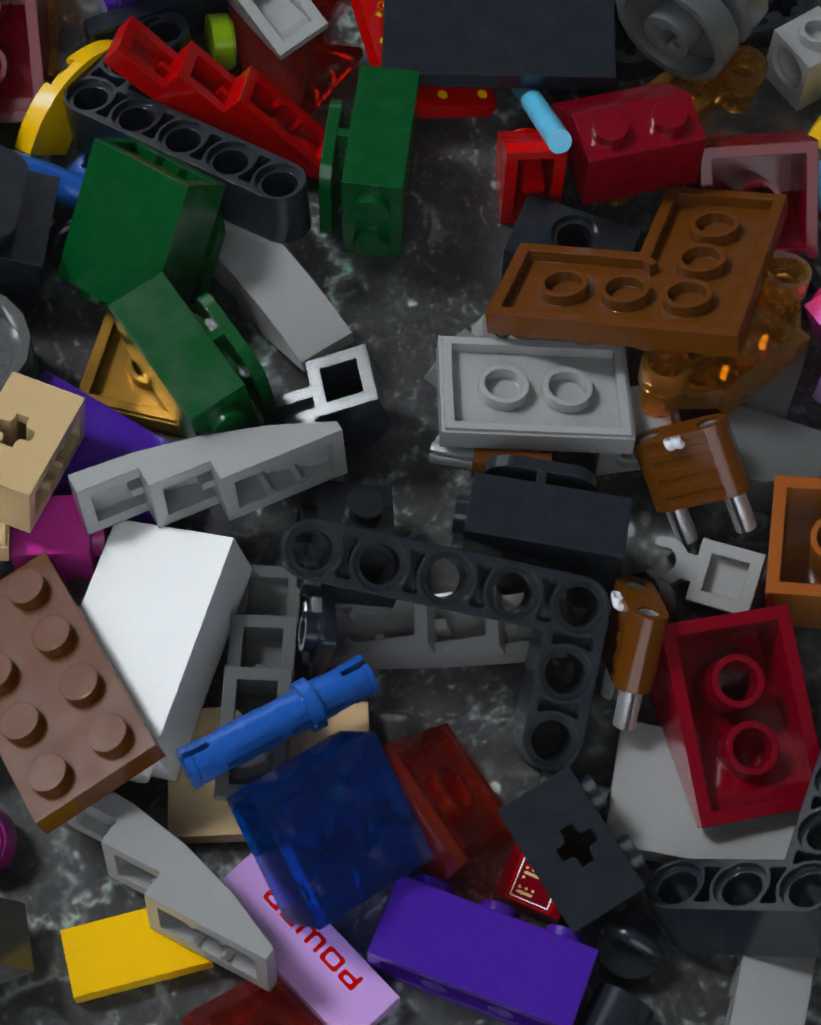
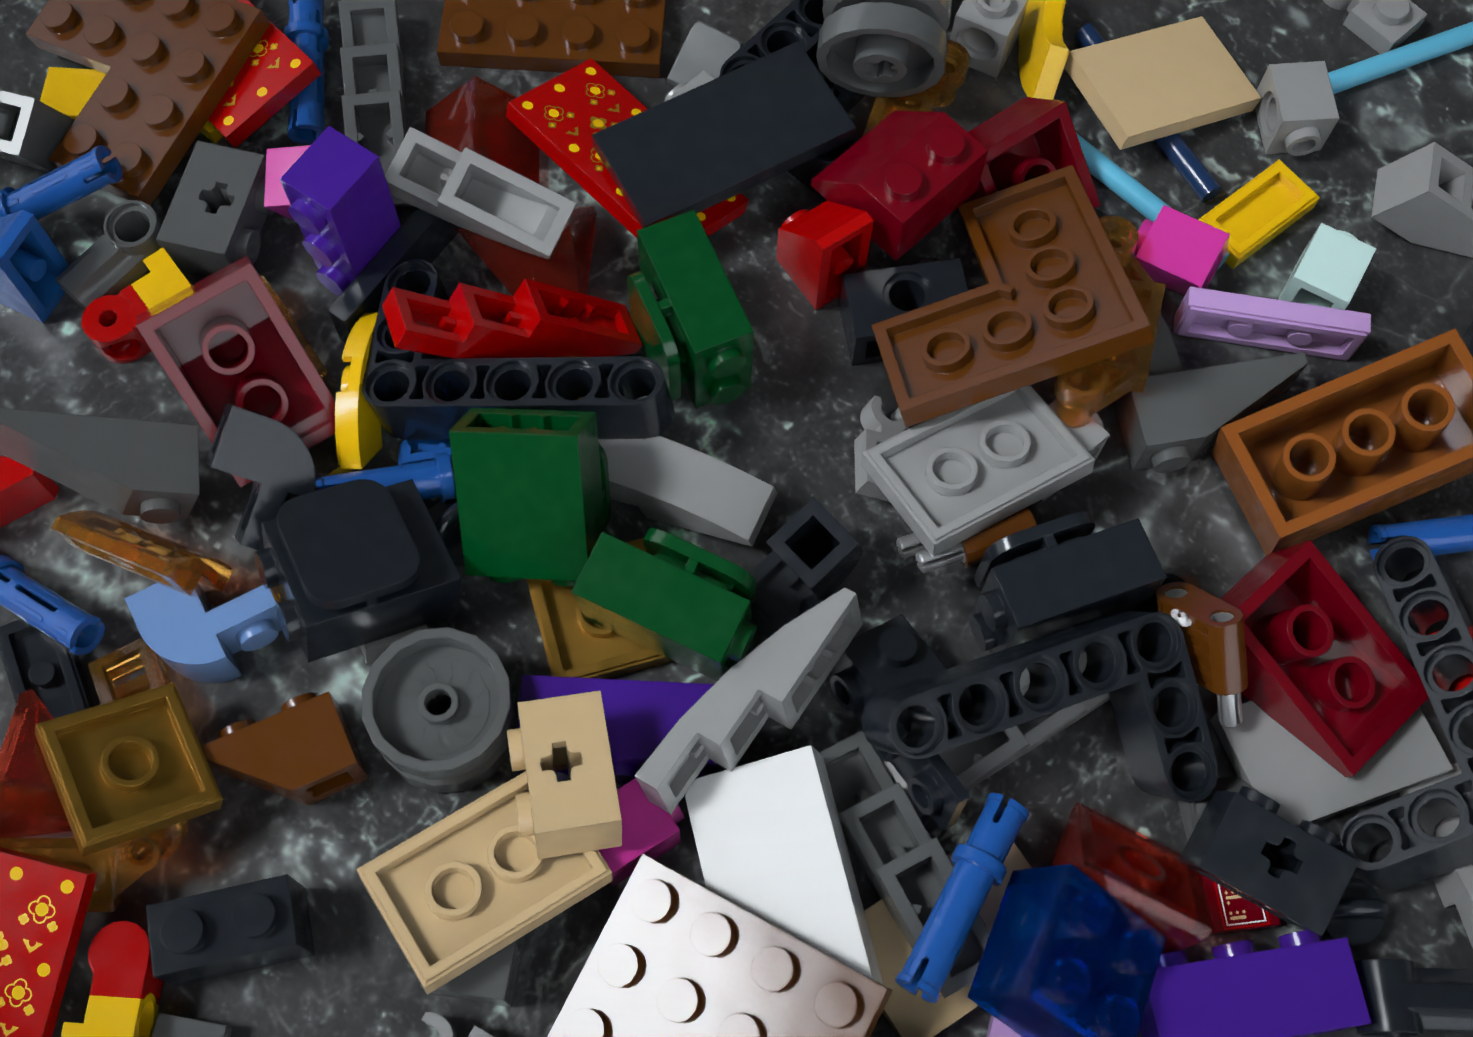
camera: 30 degrees left, 5 degrees up
(220, 39) = (461, 262): lime tile -> none
(544, 119) = (828, 200): medium azure bar -> none
(695, 466) = (1147, 455): reddish brown piece -> none
(719, 576) = (1211, 538): light grey plate -> none

